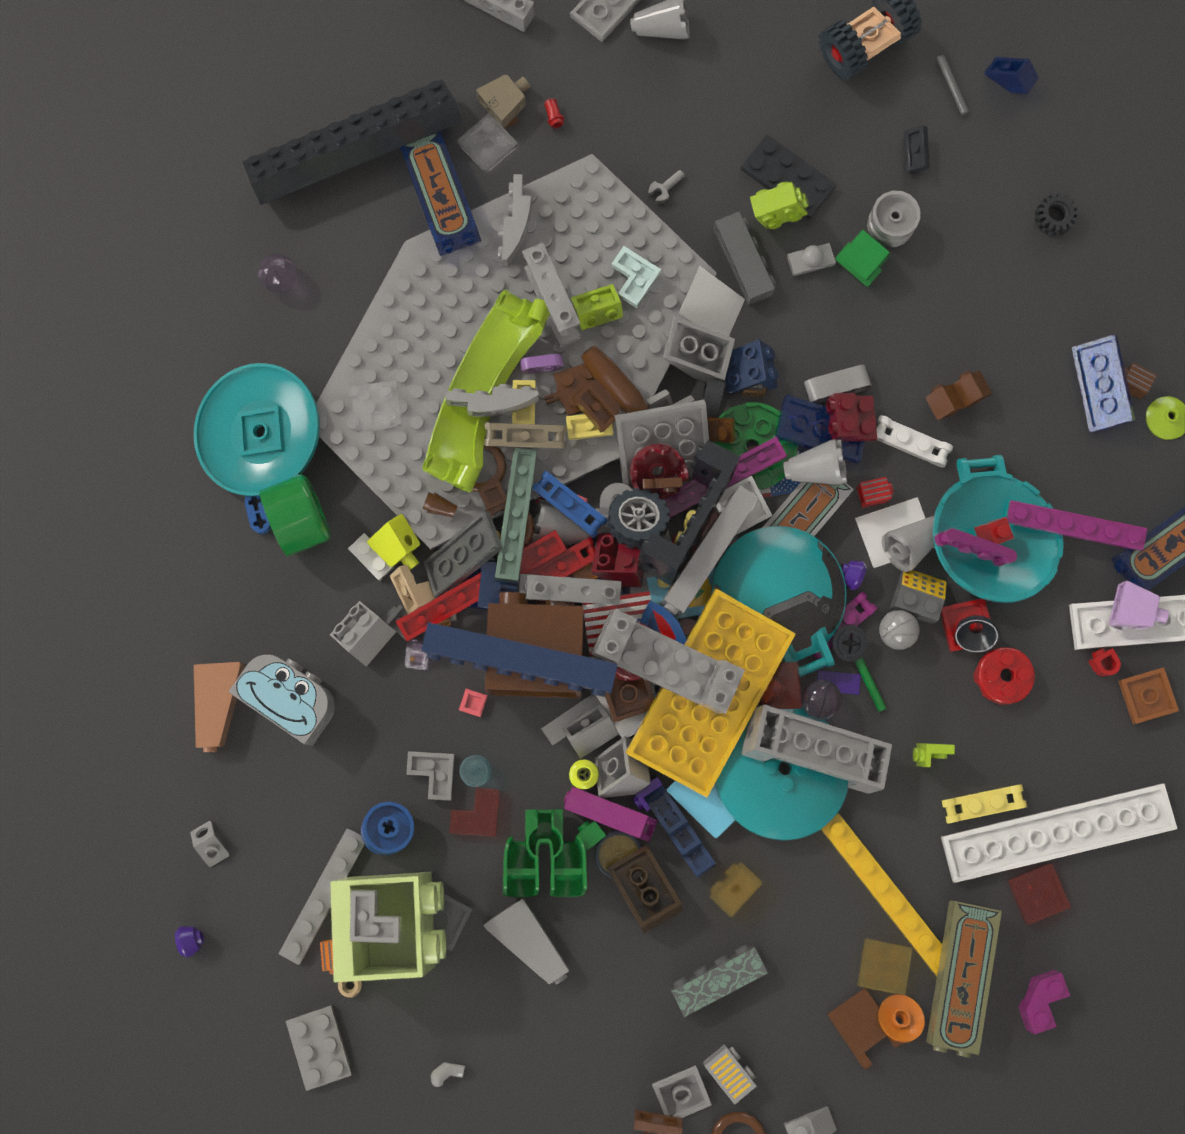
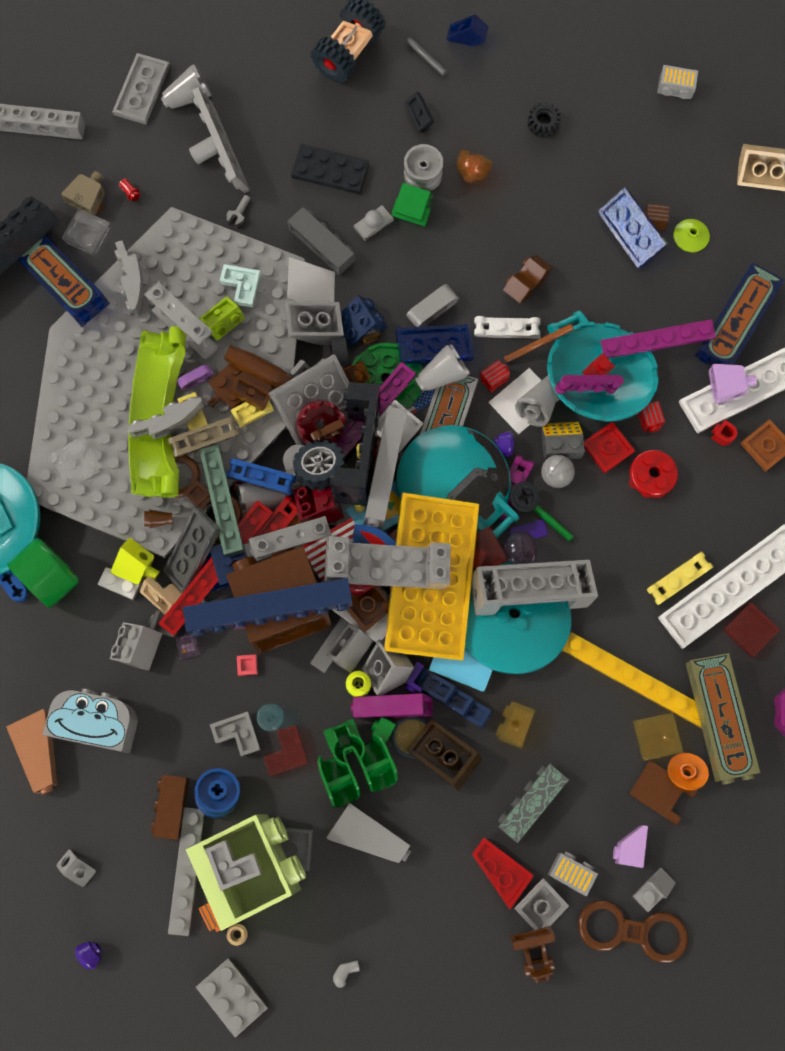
camera: 20 degrees left, 5 degrees down
(332, 822) = (170, 807): none -> reddish brown brick
(655, 1038) = (502, 871): none -> red wing
(673, 97) = (217, 143): none -> light grey plate
(779, 205) = (332, 189): lime brick -> none
(805, 1074) = (632, 848): none -> lavender slope
(851, 417) = (453, 326): dark red plate -> none
(924, 752) = (621, 553): lime bracket -> none
(939, 475) = (512, 356): none -> dark orange bar
(950, 239) = (473, 166): none -> clear orange cylinder
(976, 640) = (620, 455): black piece -> none
(1031, 611) = (651, 417): none -> red brick

